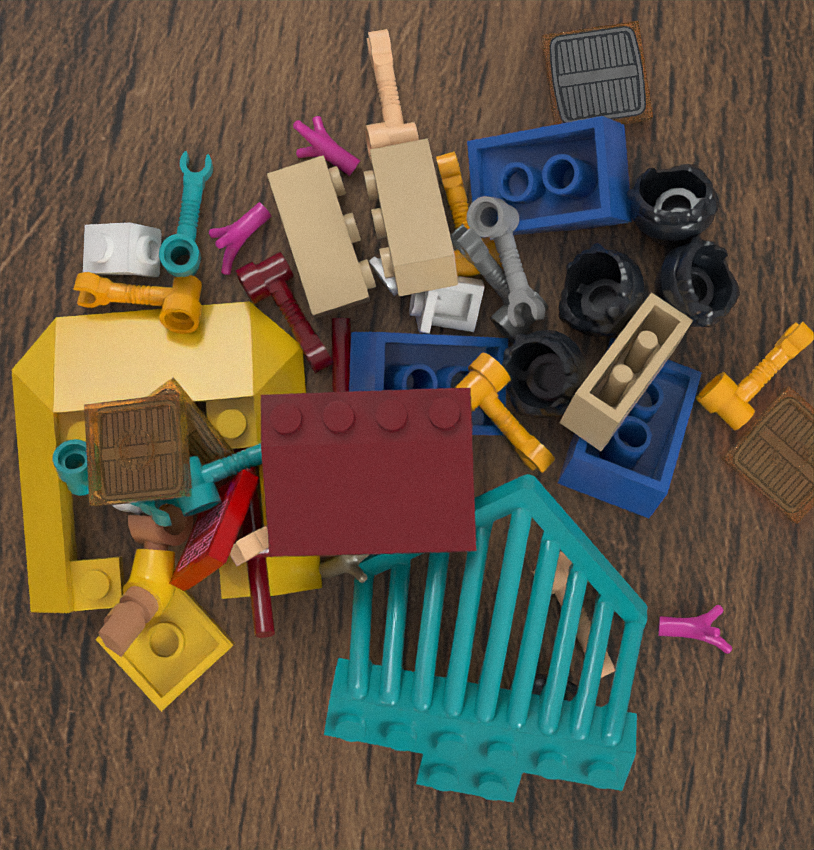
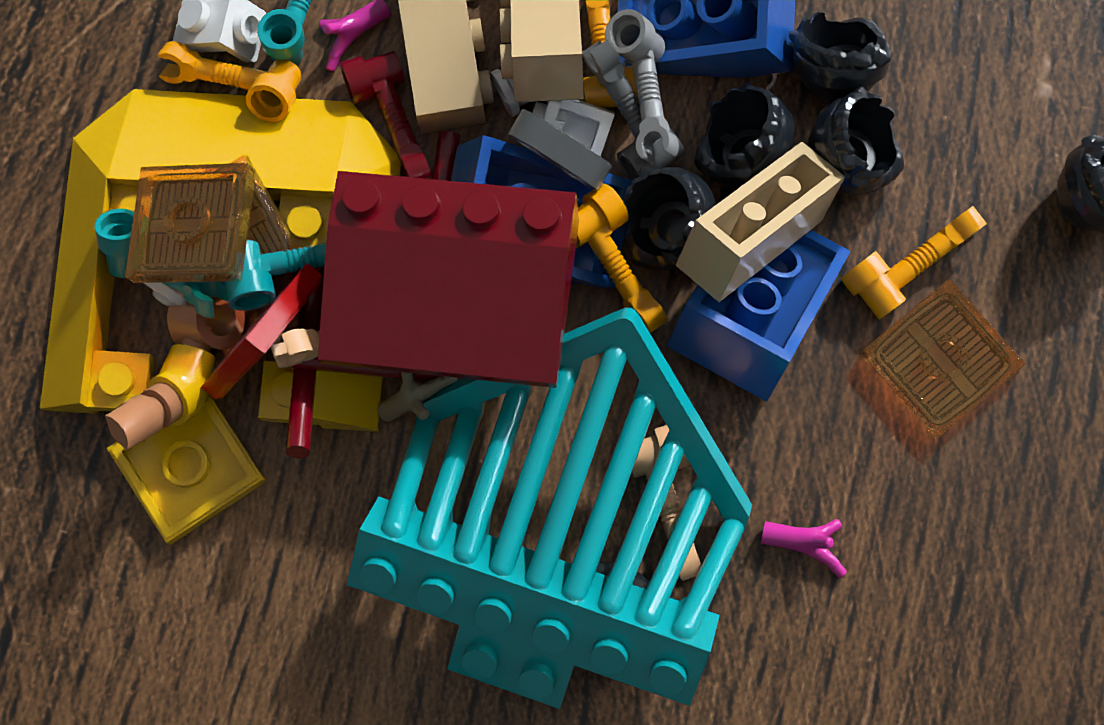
camera: 15 degrees right, 10 degrees down
(444, 334) = (559, 150): none -> dark grey beam

